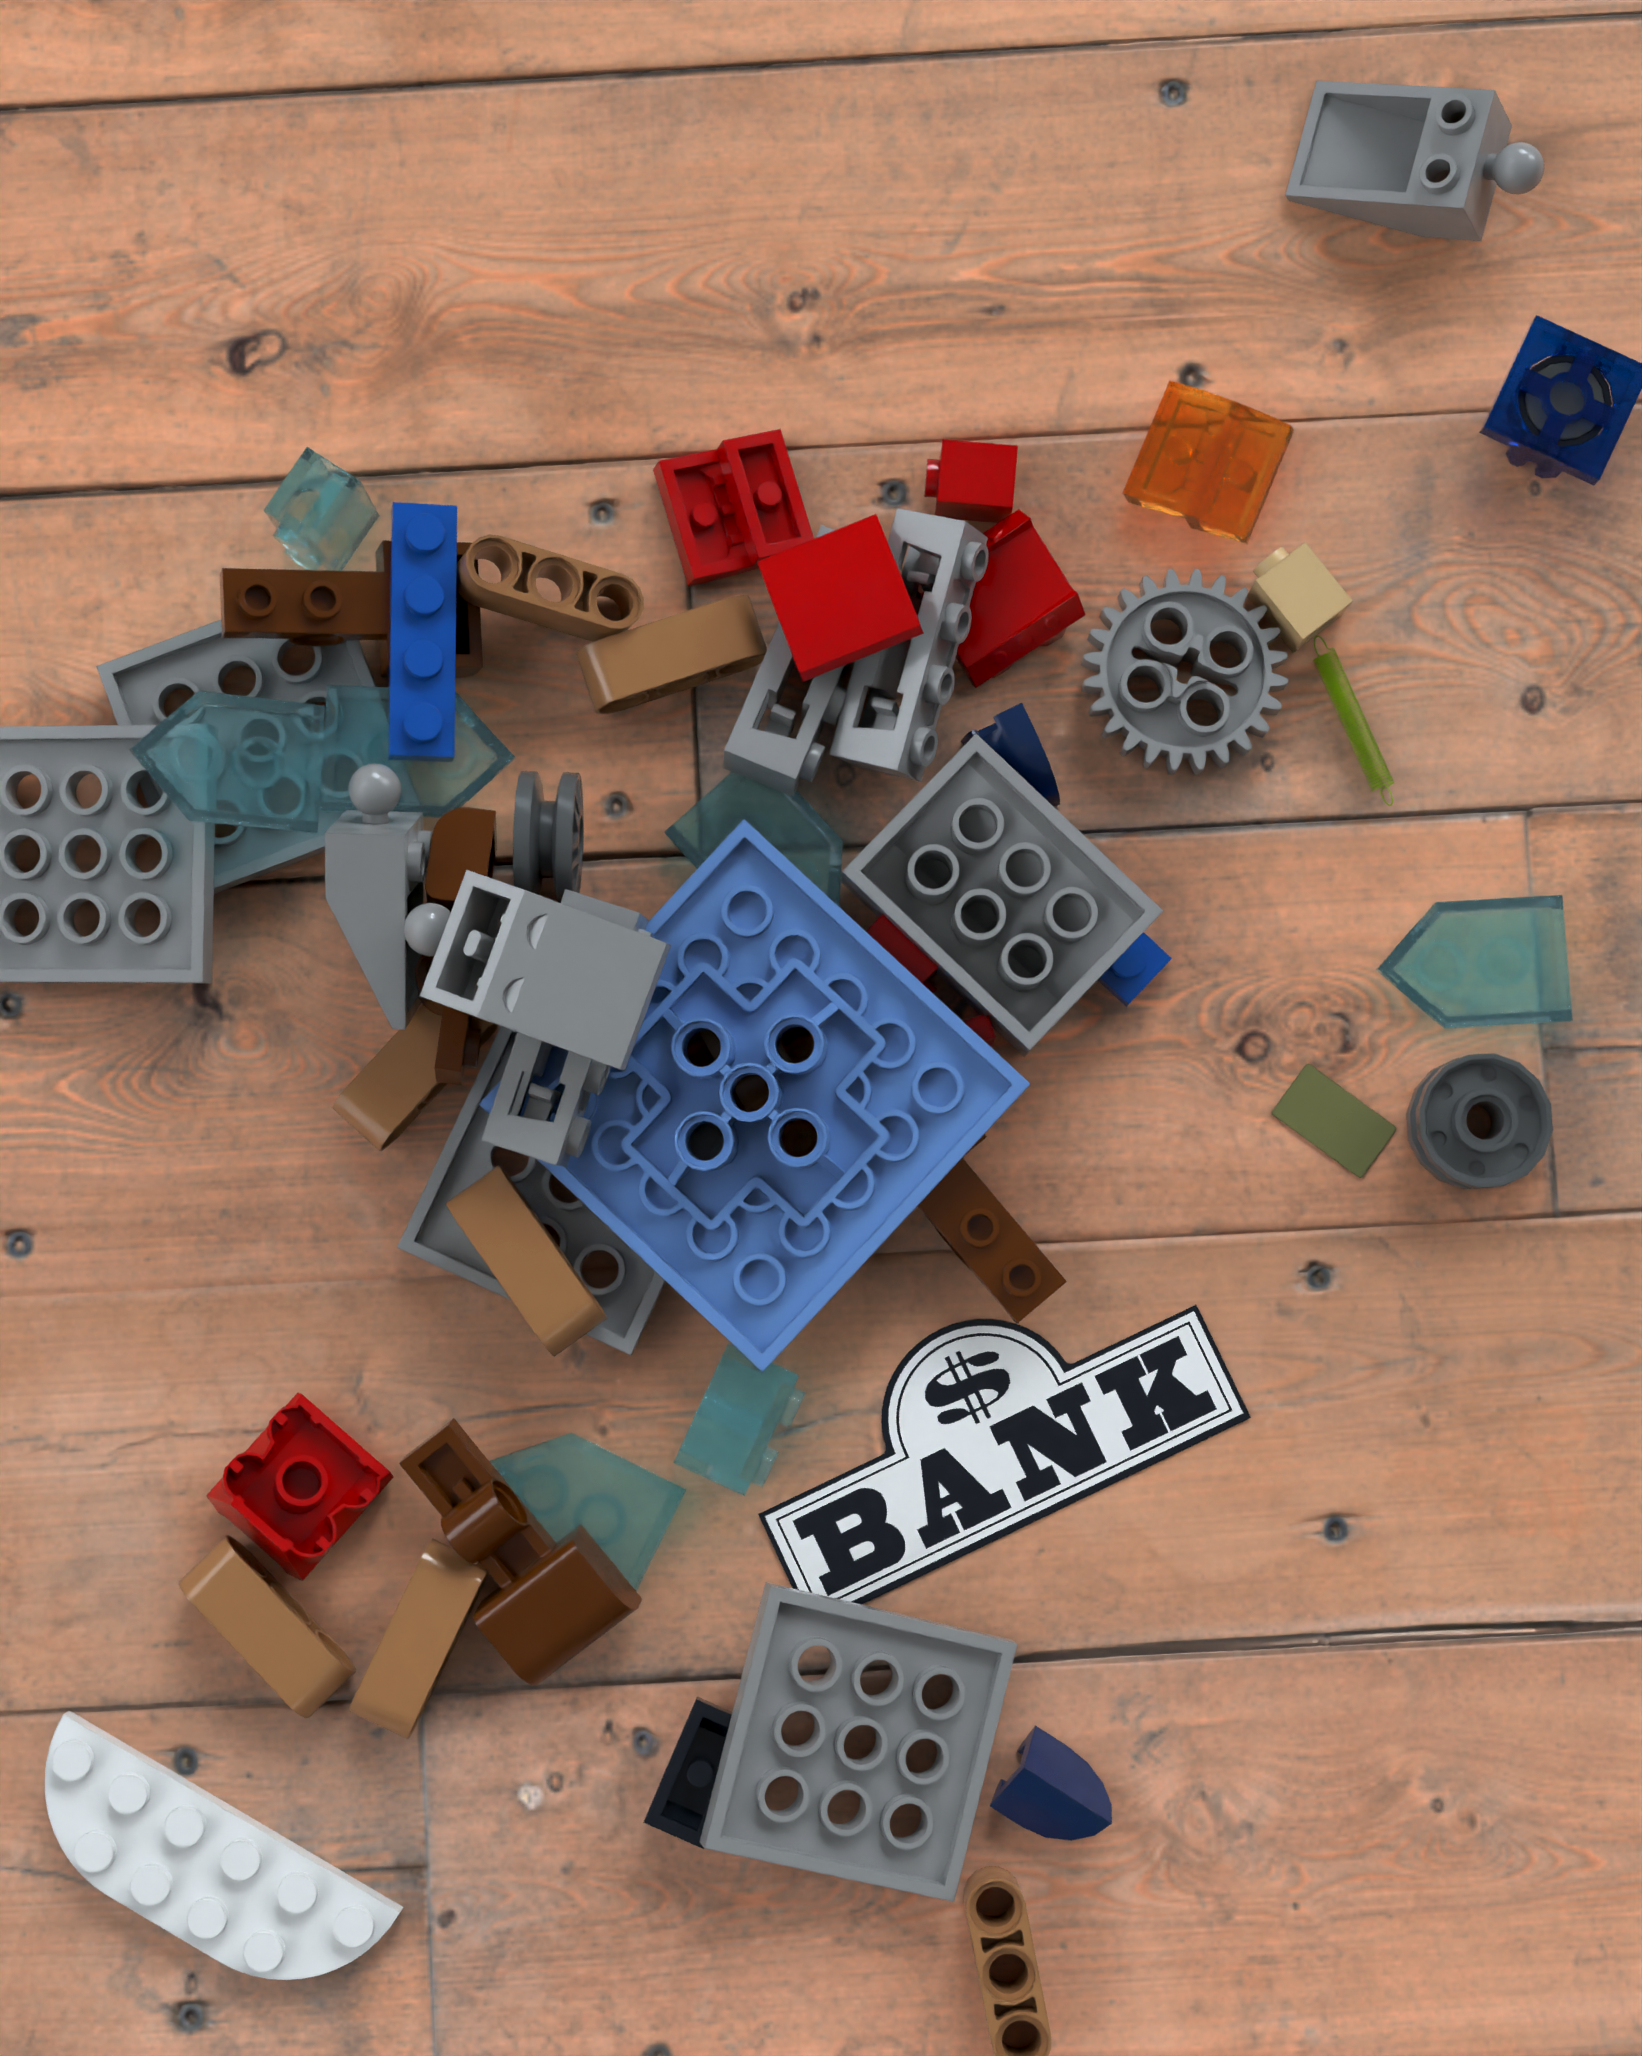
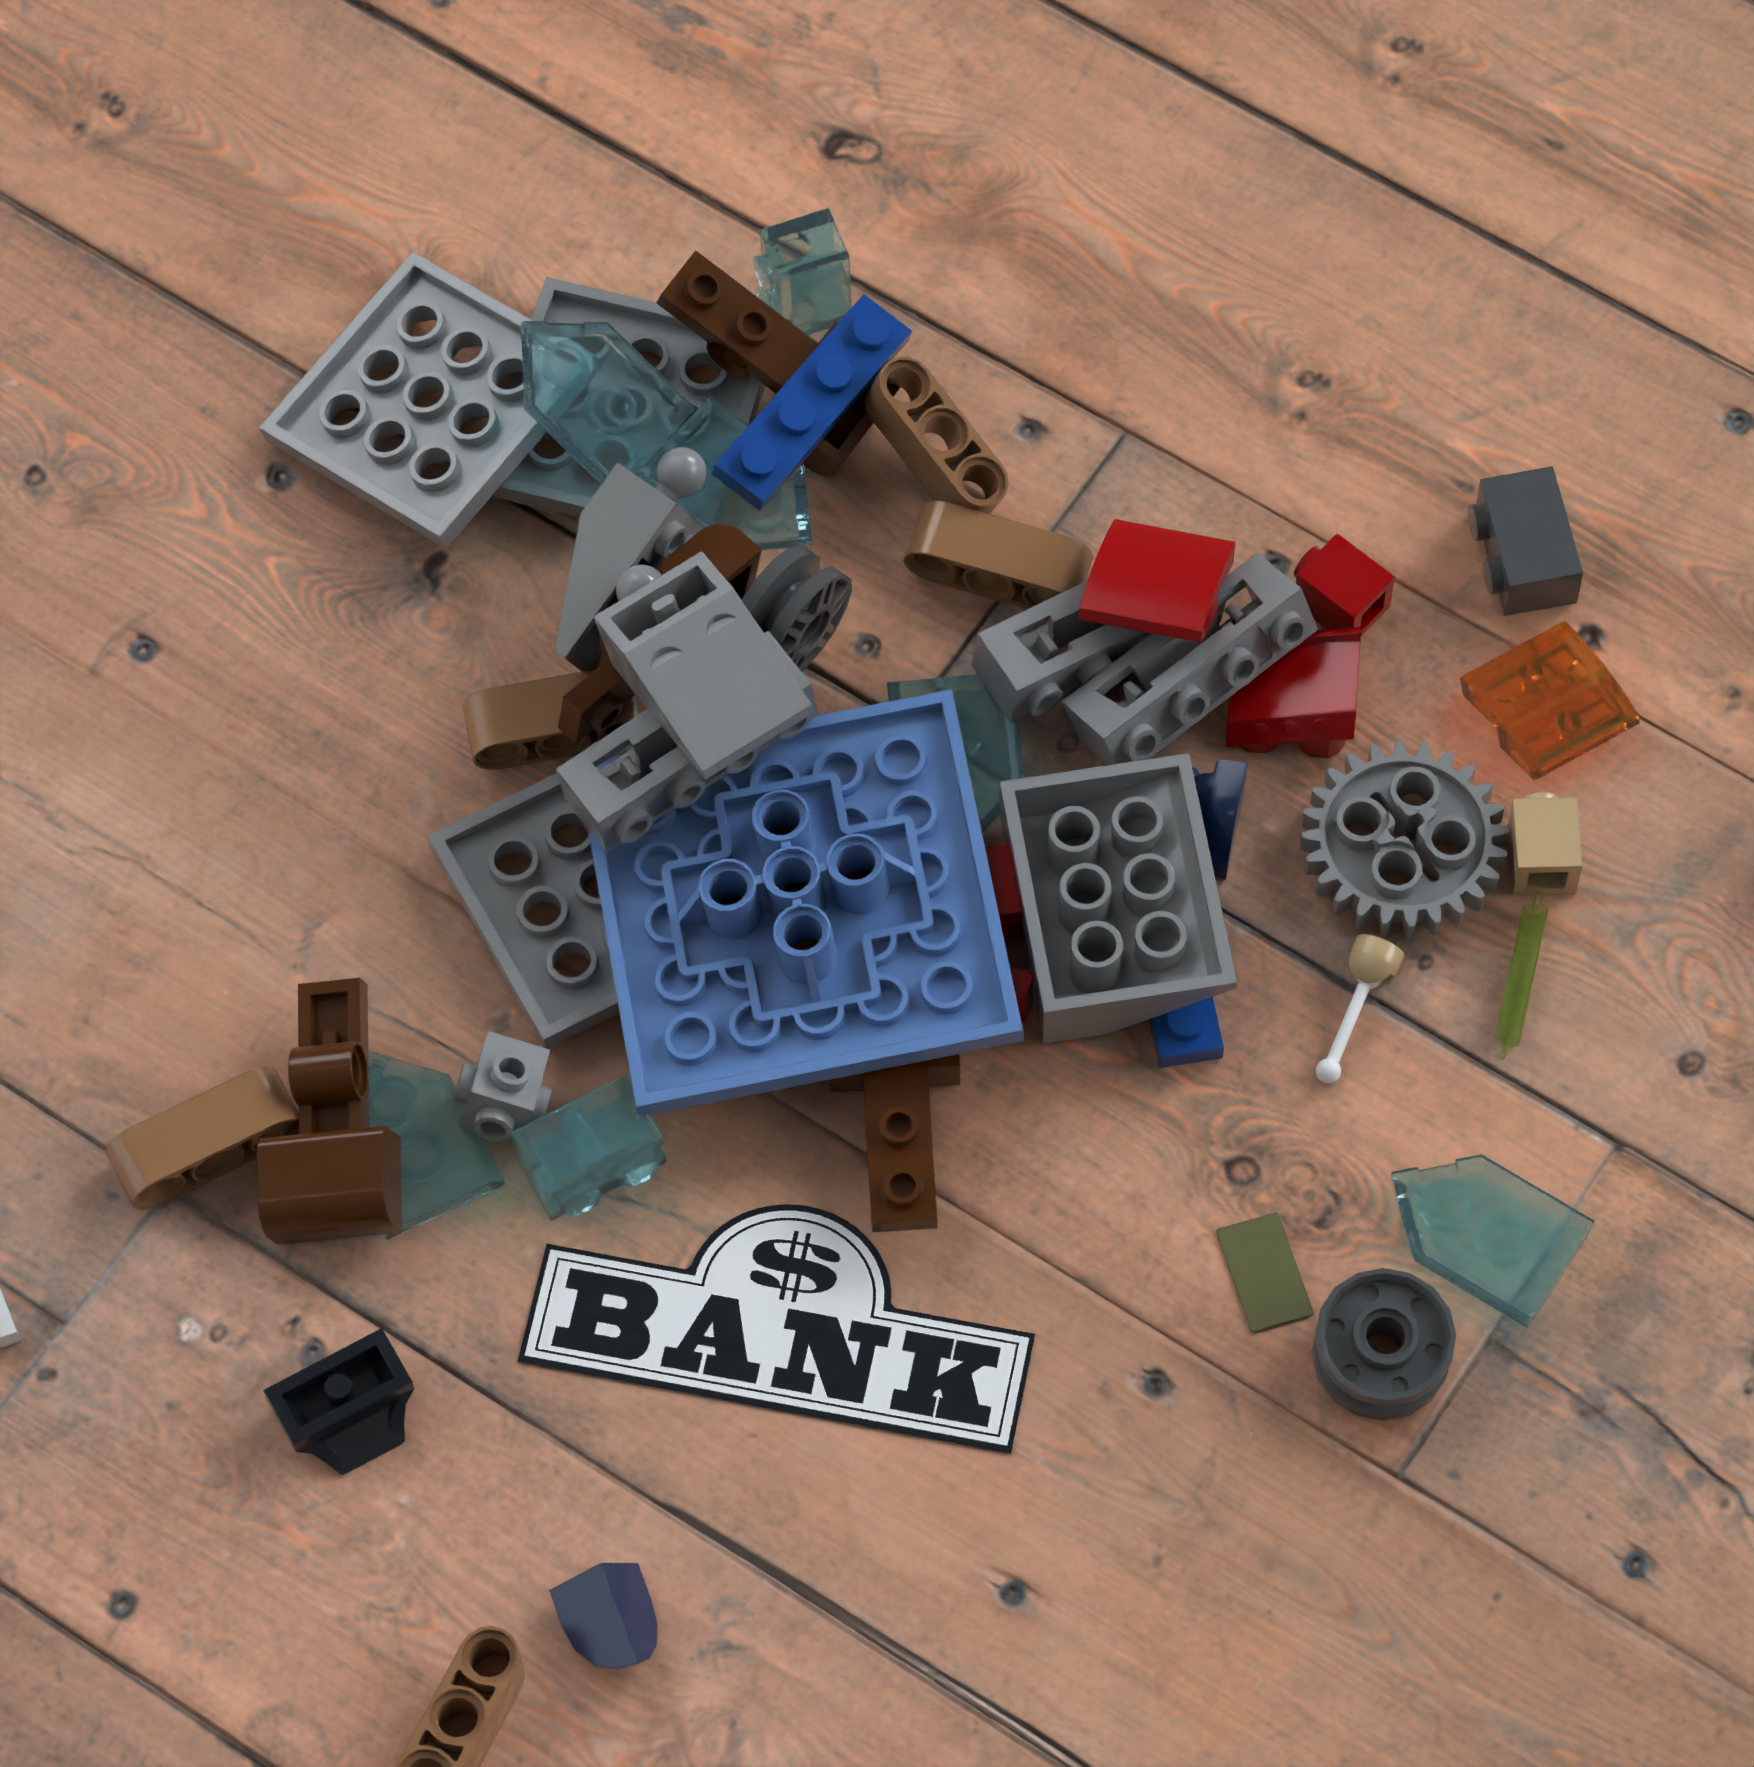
camera: 40 degrees right, 20 degrees down
(267, 1626) = (95, 1045): medium nougat beam -> none
(299, 1486) = (205, 961): red slope -> none
(526, 1260) = (519, 904): medium nougat beam -> none
(634, 1426) = (502, 1088): none -> light grey brick
(732, 506) = (1133, 480): red slope -> none
(946, 1793) = (422, 1540): light grey piece -> none
(1091, 330) = (1526, 541): none -> dark grey brick
(1237, 802) = (1372, 965): none -> hinge

